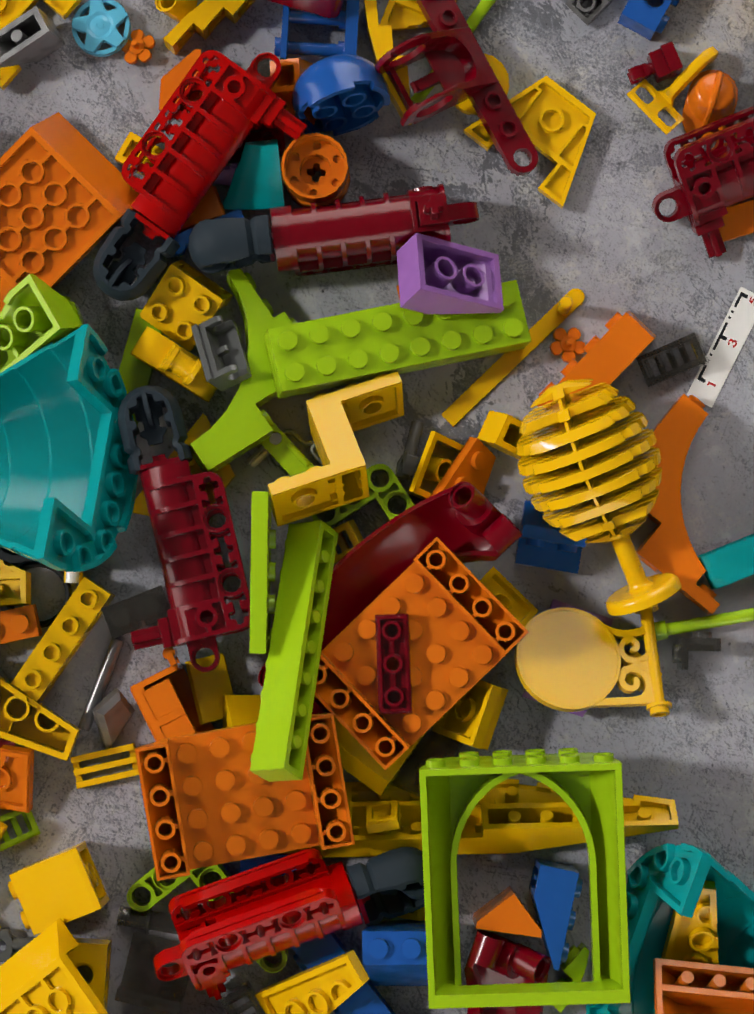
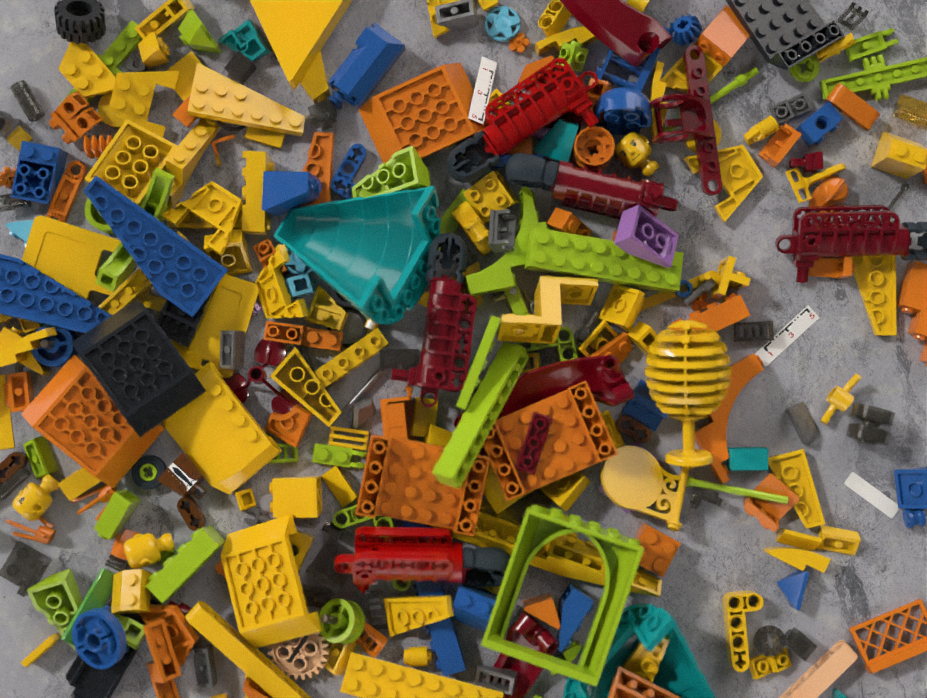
camera: 25 degrees right, 0 degrees up
(96, 801) = (336, 455): none -> lime hinge
(108, 142) = (482, 90): none -> white sticker
(119, 846) = (339, 486): none -> yellow slope
(230, 36) = (574, 55): none -> lime brick
(319, 301) = (567, 222): none -> orange slope
(382, 816) = (494, 526): yellow tile -> none
(384, 151) = (635, 152): none -> yellow piece
(454, 399) = (622, 307): none -> yellow bracket
(542, 590) = (636, 425): none -> reddish brown beam
(546, 340) = (686, 293): none -> blue bush
(565, 330) = (699, 292): none -> dark grey bar
(566, 43) = (761, 130): none -> yellow hinge
(597, 294) = (725, 278): none -> yellow bracket
(602, 55) = (779, 145): none -> orange hinge
(646, 756) = (658, 549): none -> orange brick

